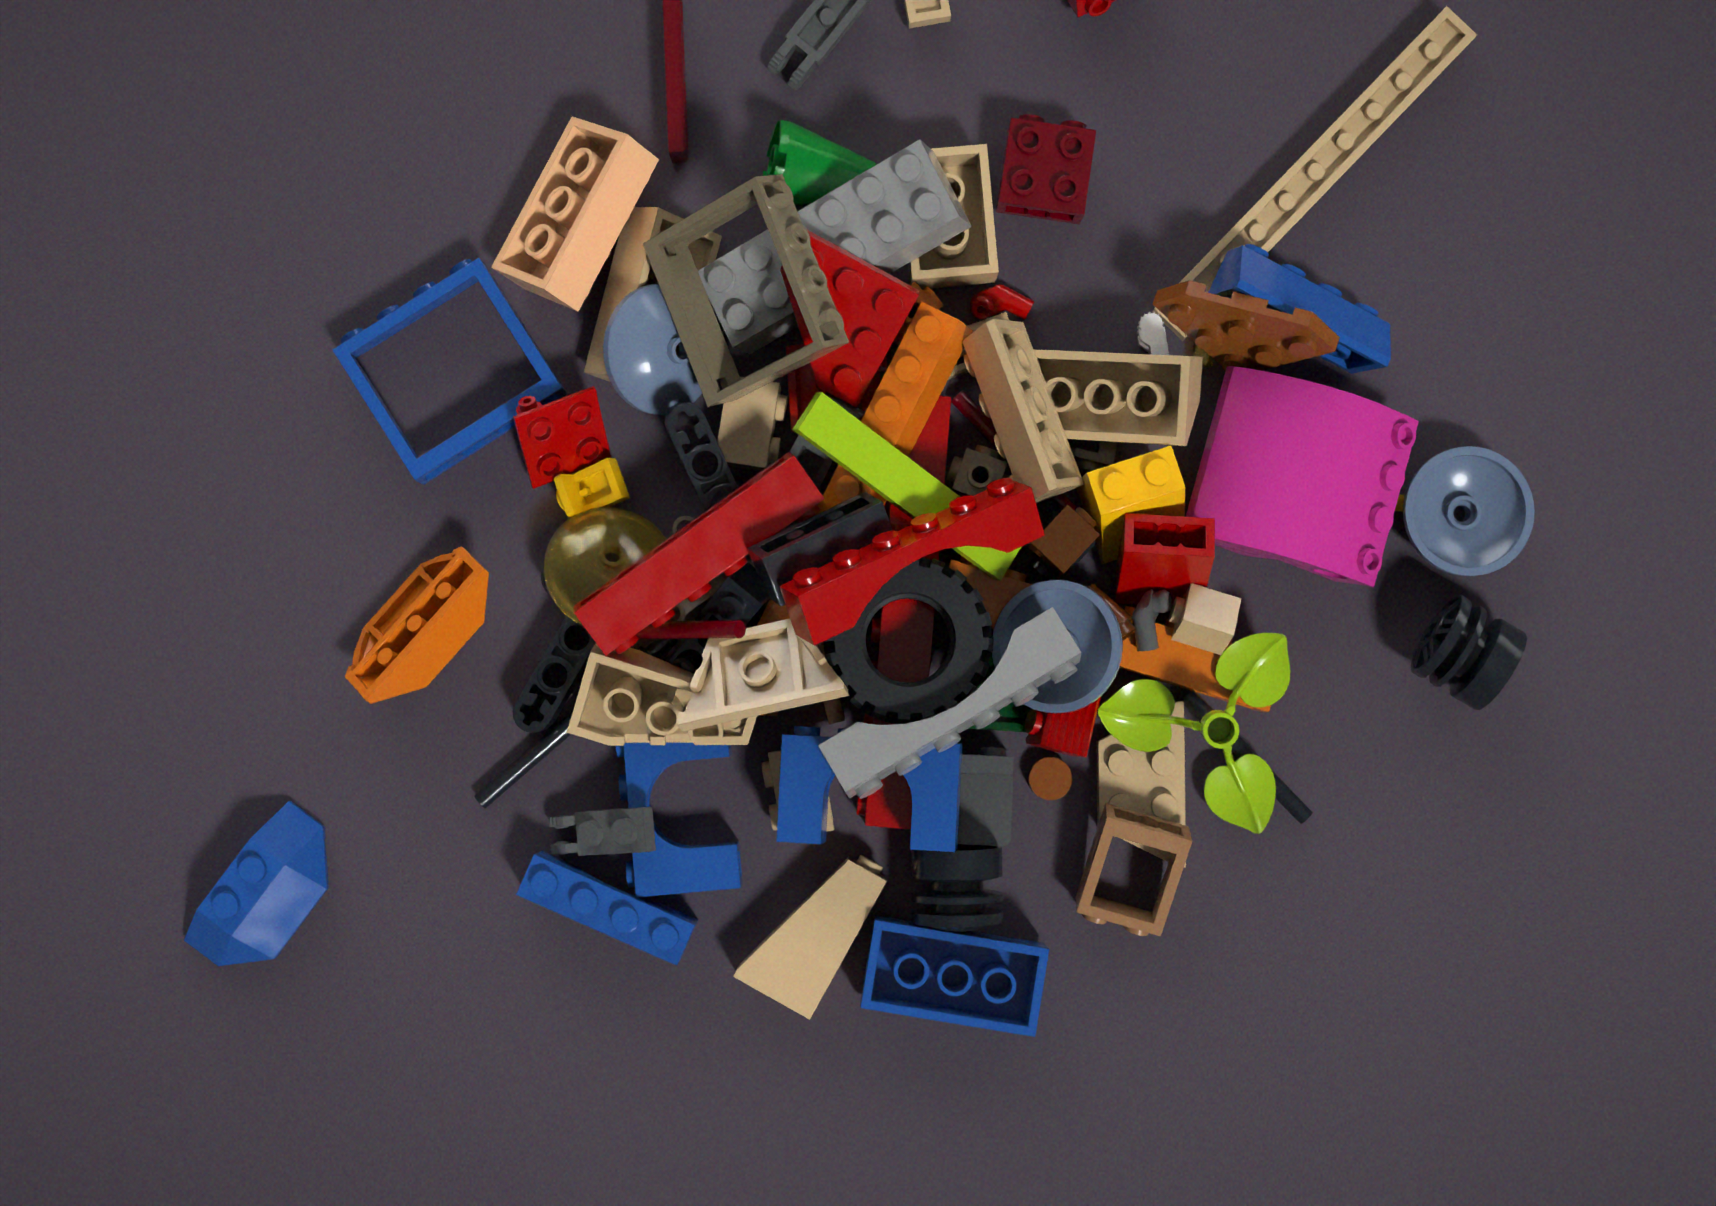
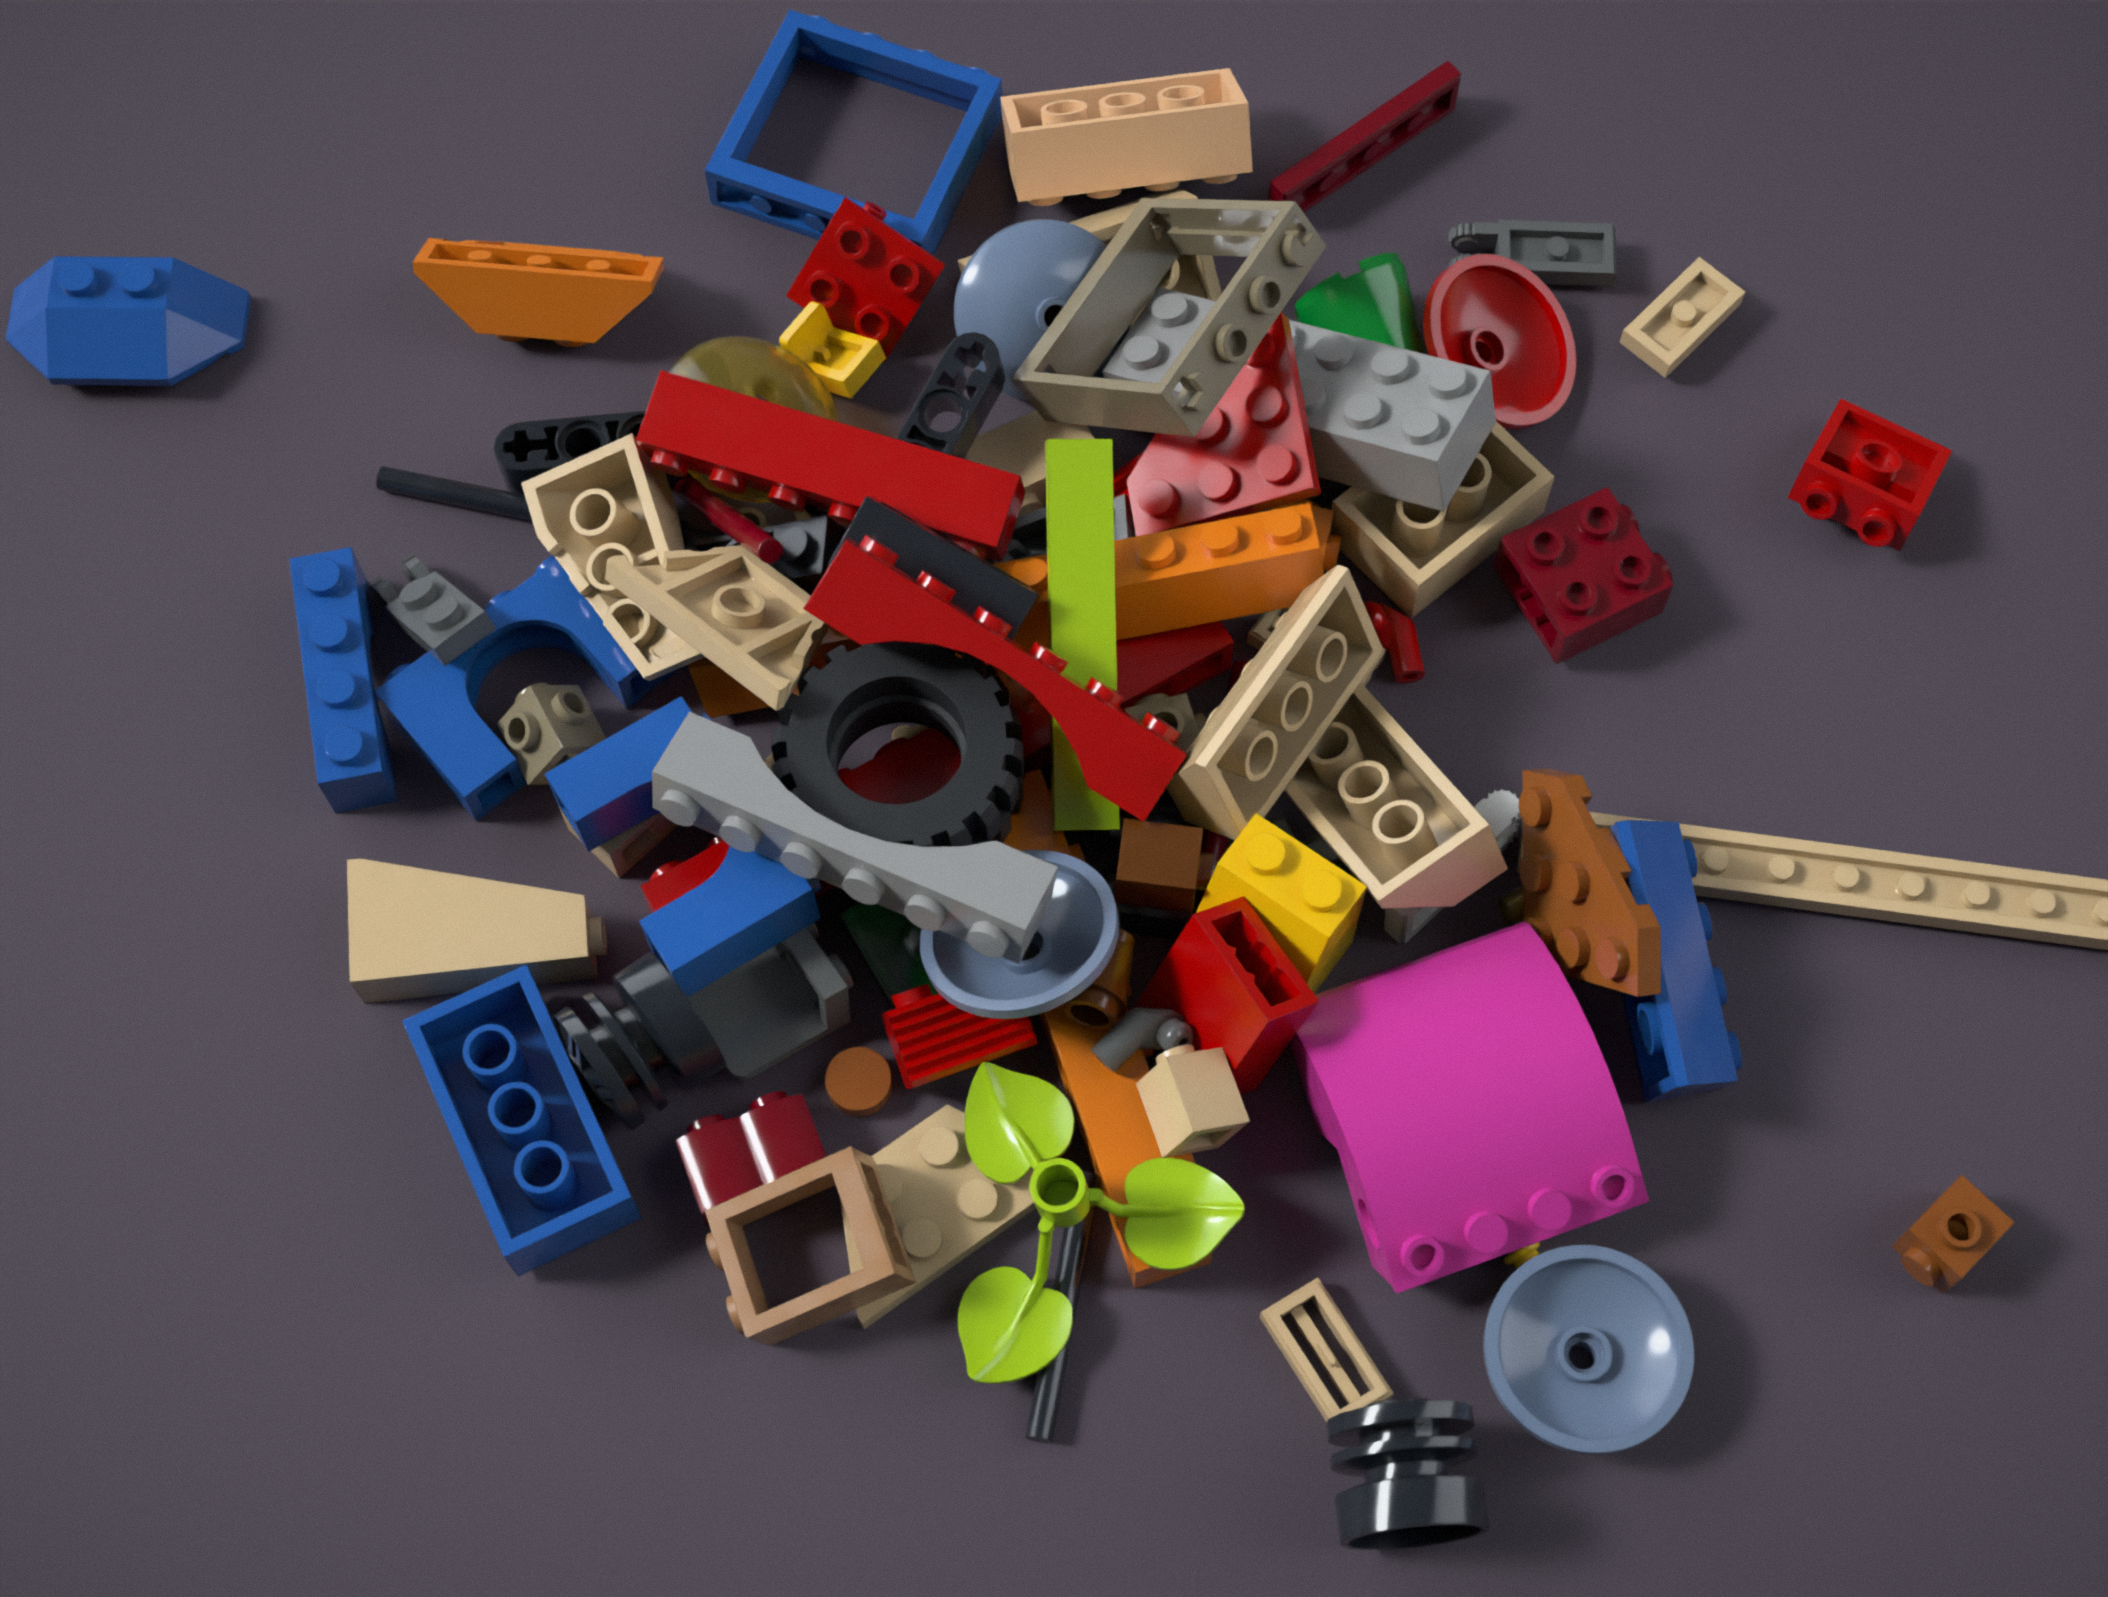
camera: 60 degrees right, 20 degrees down
(729, 811) = (548, 728): none -> dark tan brick
(870, 100) = (1507, 322): none -> red dish
(1056, 864) = (748, 1150): none -> dark red brick
(1329, 638) = (1346, 1337): none -> tan tile
(1537, 278) = (1951, 1235): none -> dark orange brick

